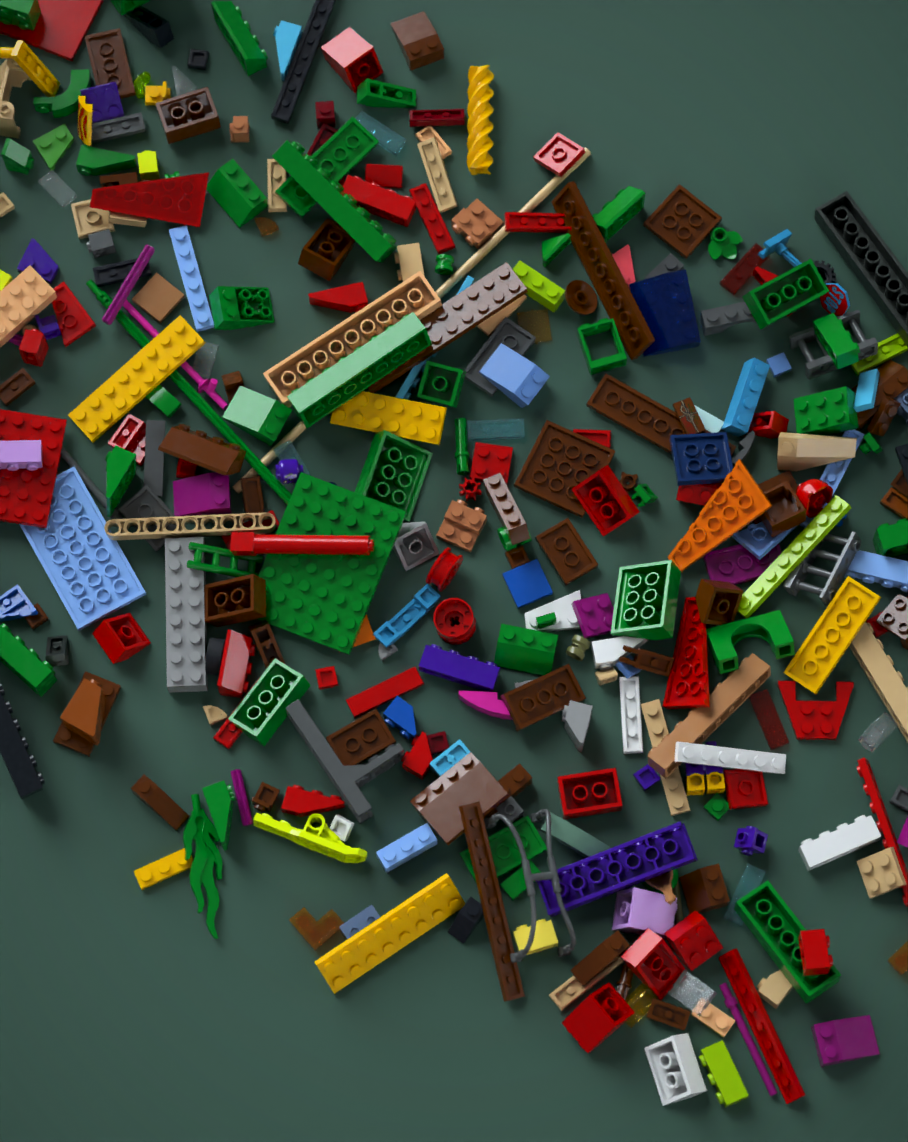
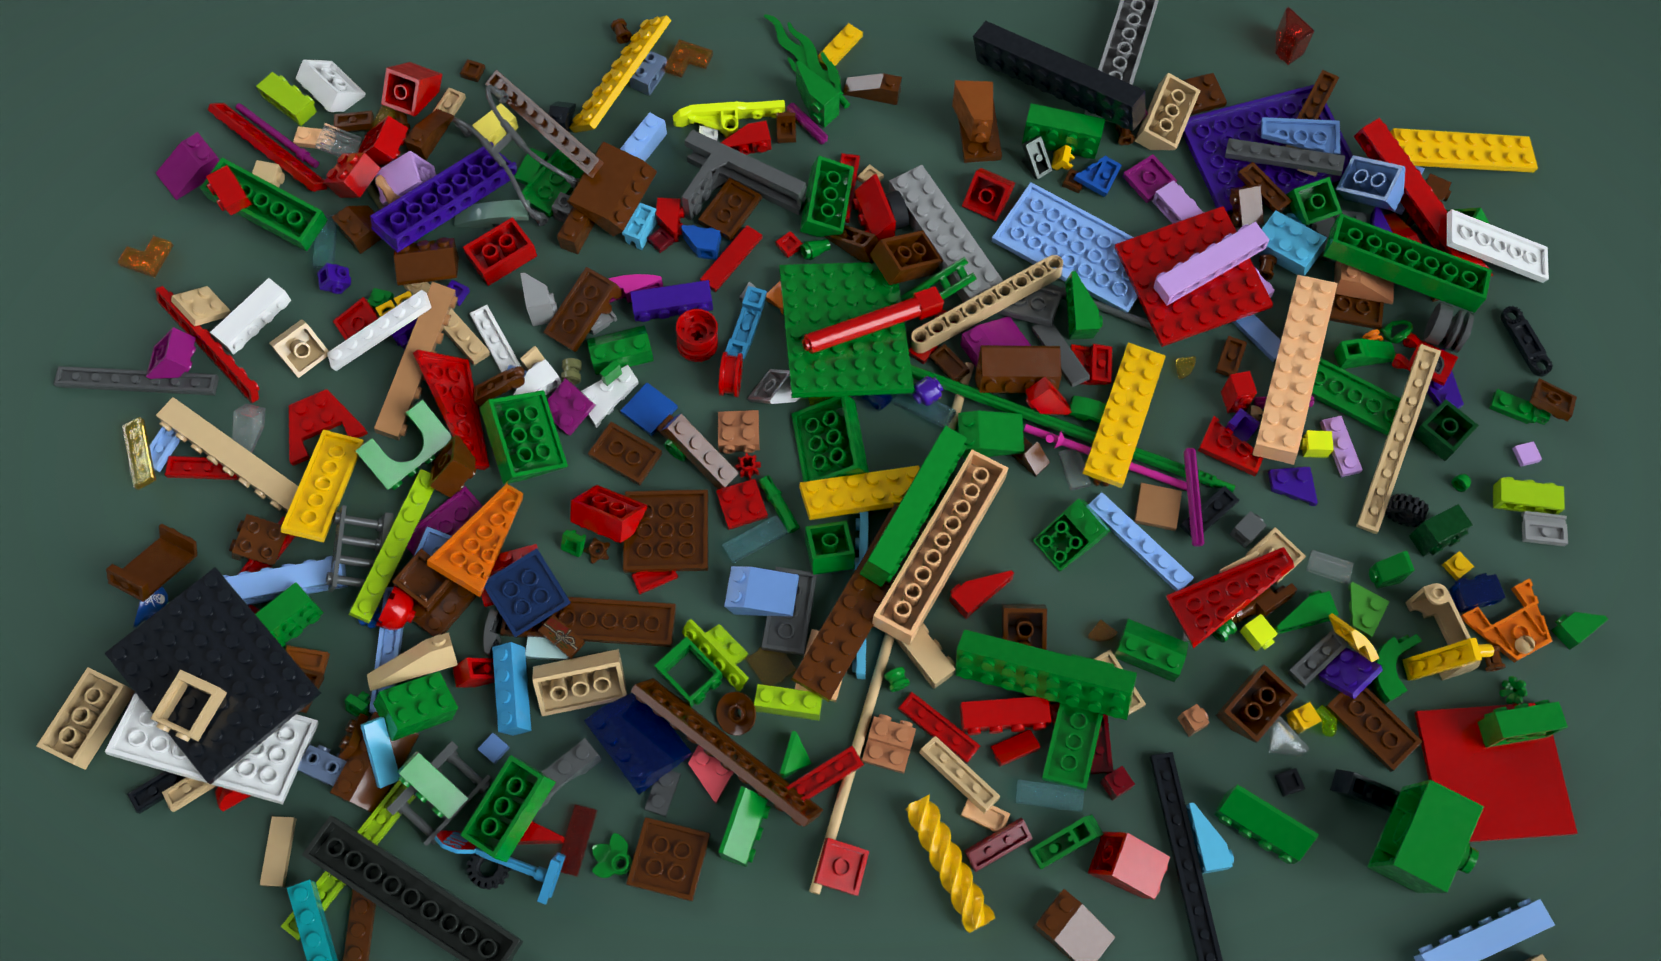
camera: 150 degrees right, 5 degrees down
(34, 639) = (1062, 158): none -> yellow tile
(56, 400) = (1185, 366): none -> clear yellow tile
(194, 417) = (1046, 398): none -> red slope
(307, 661) = (812, 249): none -> green cone
(364, 990) = (623, 35): none -> reddish brown bush
(529, 1021) = (472, 70): none -> reddish brown tile
(568, 352) = (720, 650): none -> lime bracket
(658, 809) = (427, 261): none -> reddish brown slope
(690, 380) = (579, 682): none -> tan slope
(768, 719) = (360, 393): clear red tile -> none
(807, 789) = (299, 348): none -> tan slope

